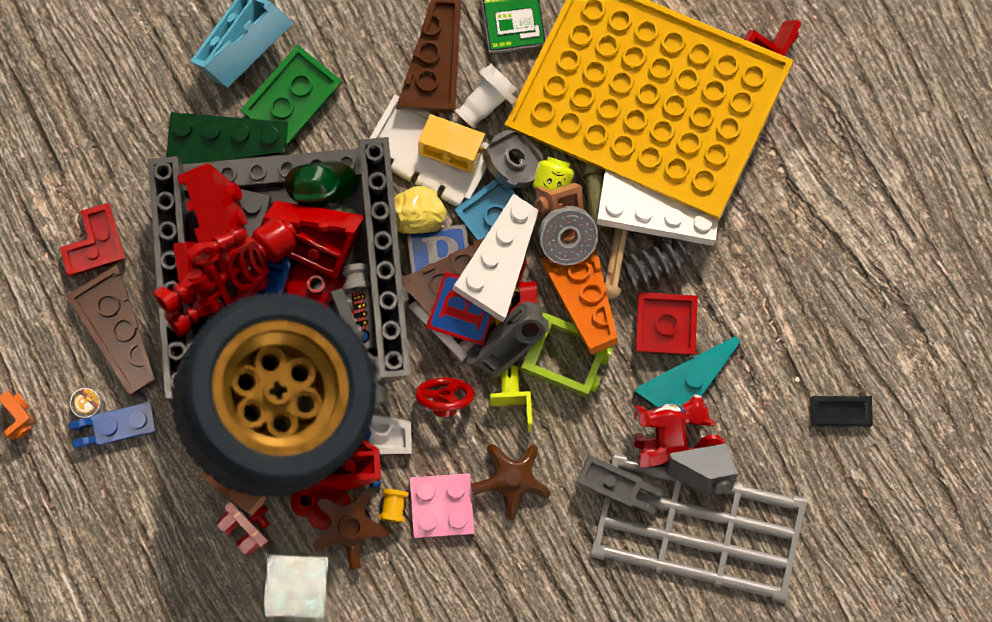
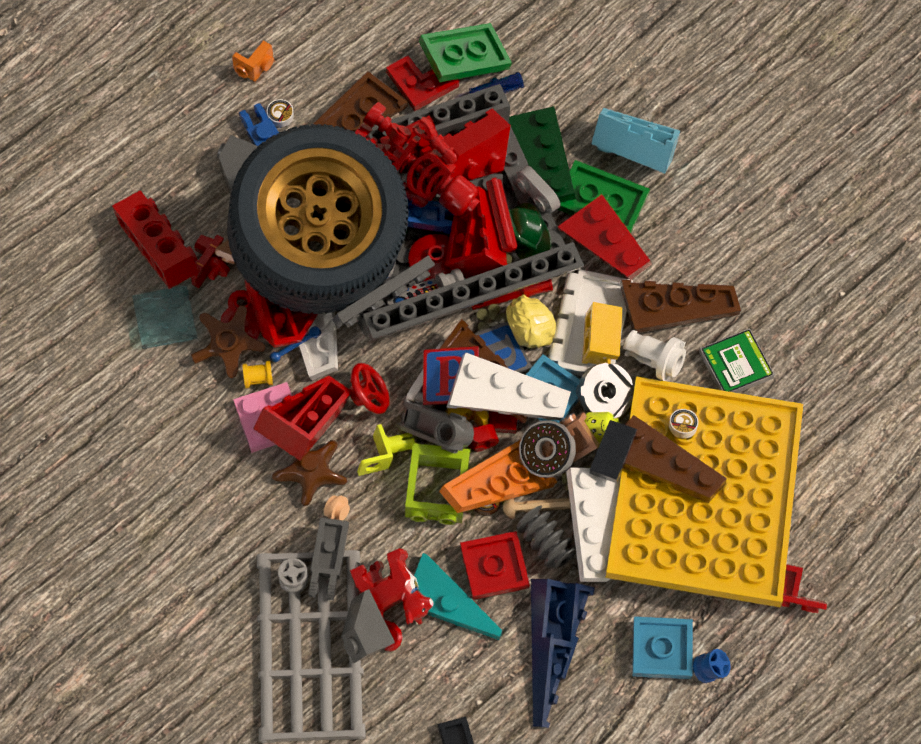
camera: 75 degrees right, 15 degrees down
(76, 186) = (465, 52): none -> green plate
(125, 166) = (507, 83): none -> clear blue pin
(139, 465) = (232, 157): none -> dark grey slope
(255, 565) = (155, 239): none -> red brick
(270, 162) = (538, 189): none -> light grey plate
(301, 203) = (501, 215): none -> red axle
(346, 105) = (605, 236): none -> red wedge
(468, 467) = (304, 417): none -> red wedge
(565, 463) = (337, 507): none -> light nougat plate
(574, 94) = (683, 423): none -> tile
(594, 171) = (613, 451): none -> black tile
(604, 132) = (670, 463): none -> reddish brown wing
(630, 520) = (293, 568): none -> light grey wheel
(733, 281) = (554, 622): none -> dark blue wedge
(793, 188) = (662, 648): none -> dark azure plate
(826, 148) = (711, 666): none -> blue wheel

